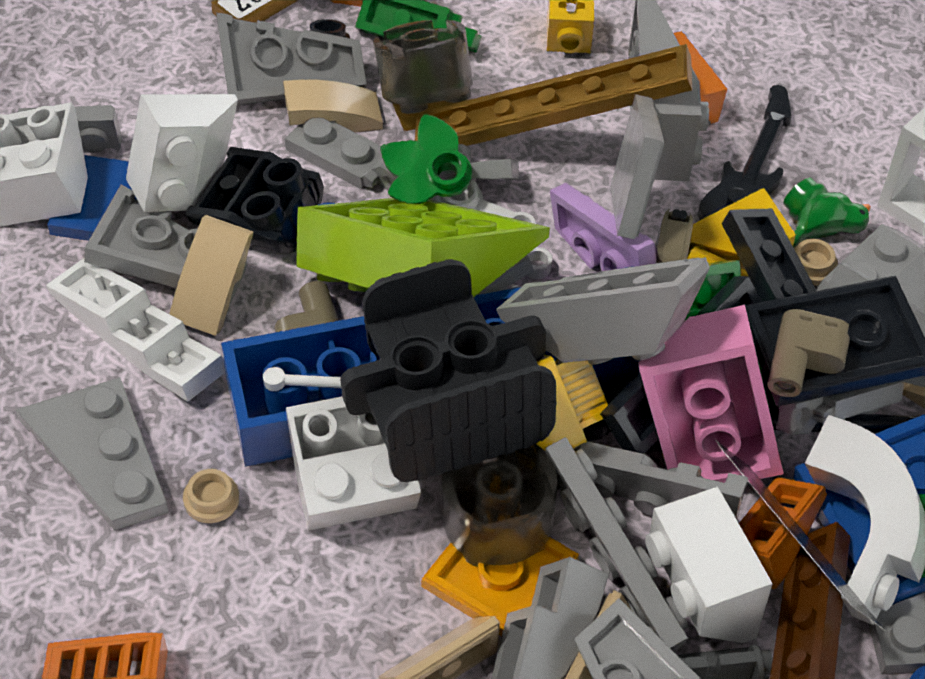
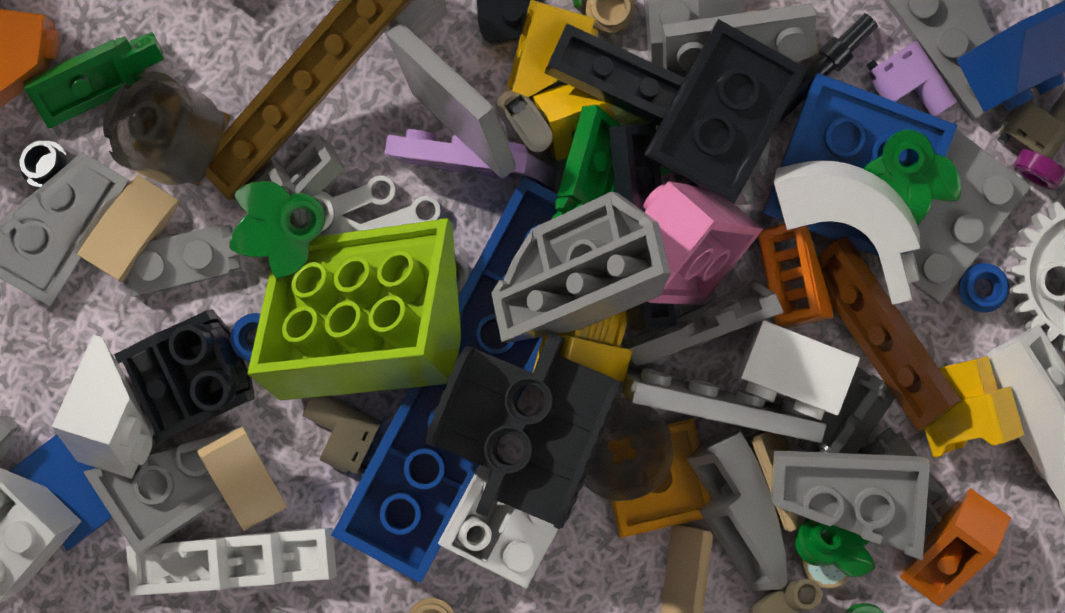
camera: 45 degrees left, 35 degrees up
(276, 379) = (401, 526): white hinge -> none
(799, 535) = (829, 290): sticker -> none
(805, 343) = (719, 151): dark tan piece -> none

